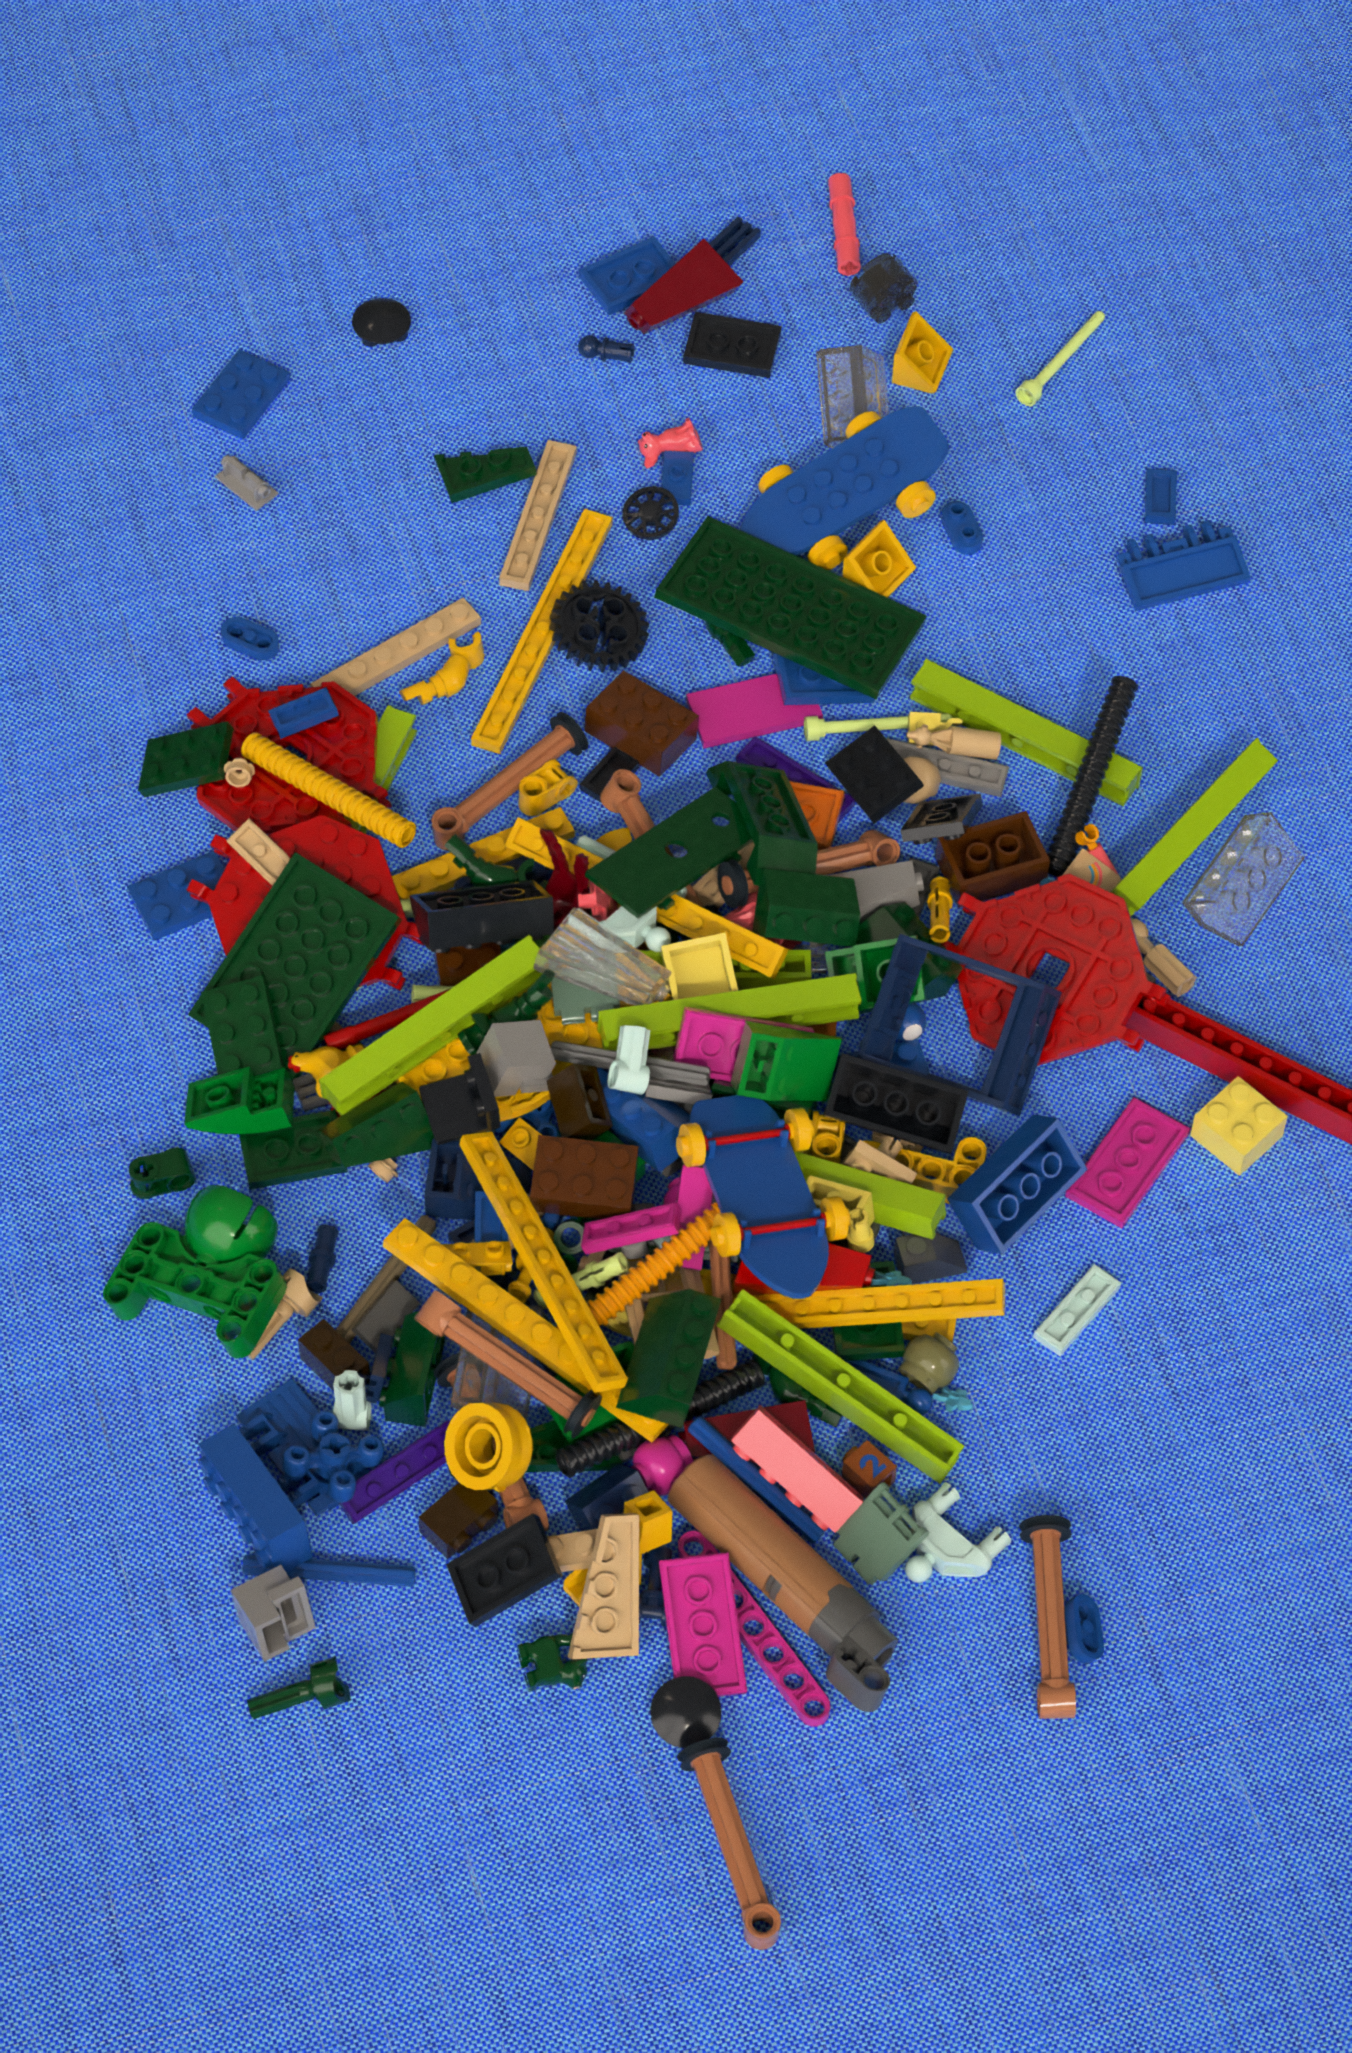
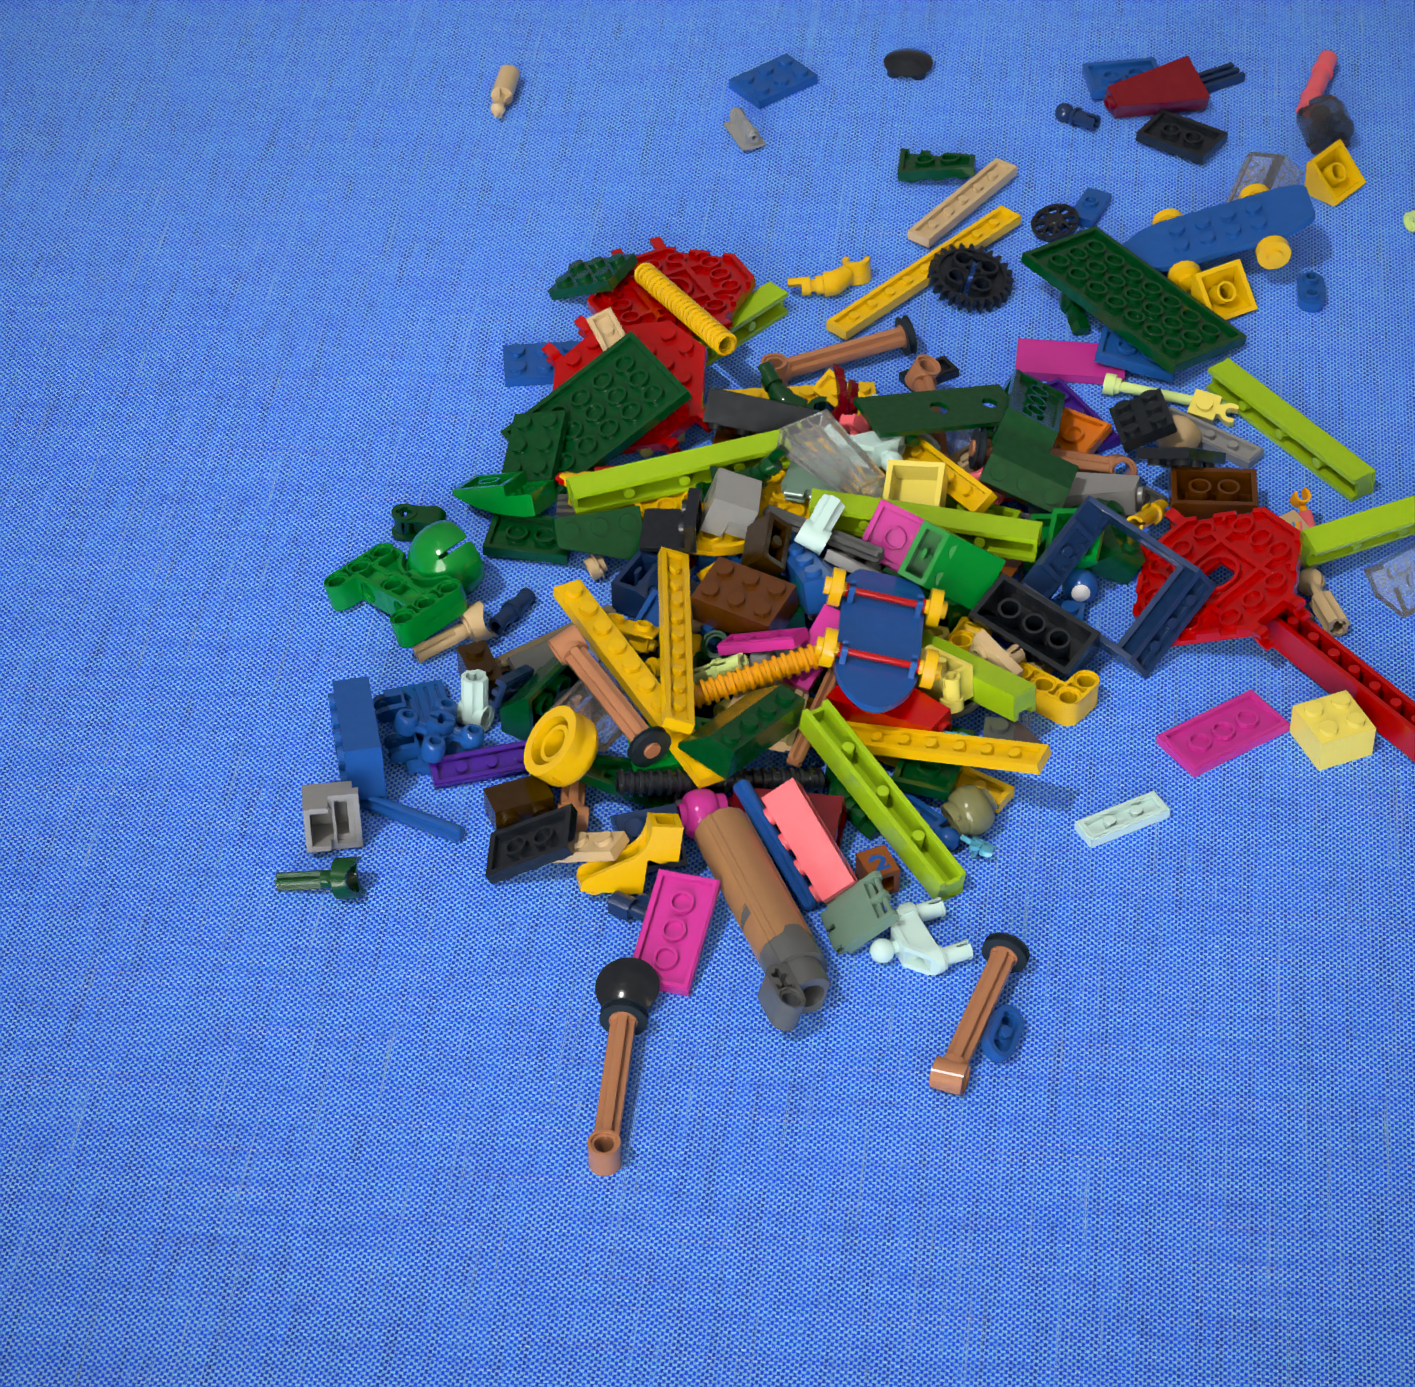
camera: 25 degrees right, 15 degrees down
(239, 778) = (620, 290): tan plate -> none
(251, 640) = (690, 222): blue plate -> none
(303, 713) = (696, 263): blue plate -> none
(404, 648) = (810, 258): tan plate -> none
(545, 788) = (867, 364): yellow piece -> none
(548, 1663) = (530, 920): dark green animal -> none
(610, 1598) = (602, 883): tan wing -> none
(641, 723) = (969, 343): reddish brown brick -> none
(680, 438) = (1106, 181): coral animal -> none
(769, 1638) = (727, 961): dark pink beam -> none
(960, 741) = (1228, 418): tan wheel -> none
(1017, 1184) = (1111, 710): blue brick -> none
(1091, 773) = (1333, 451): black piece -> none

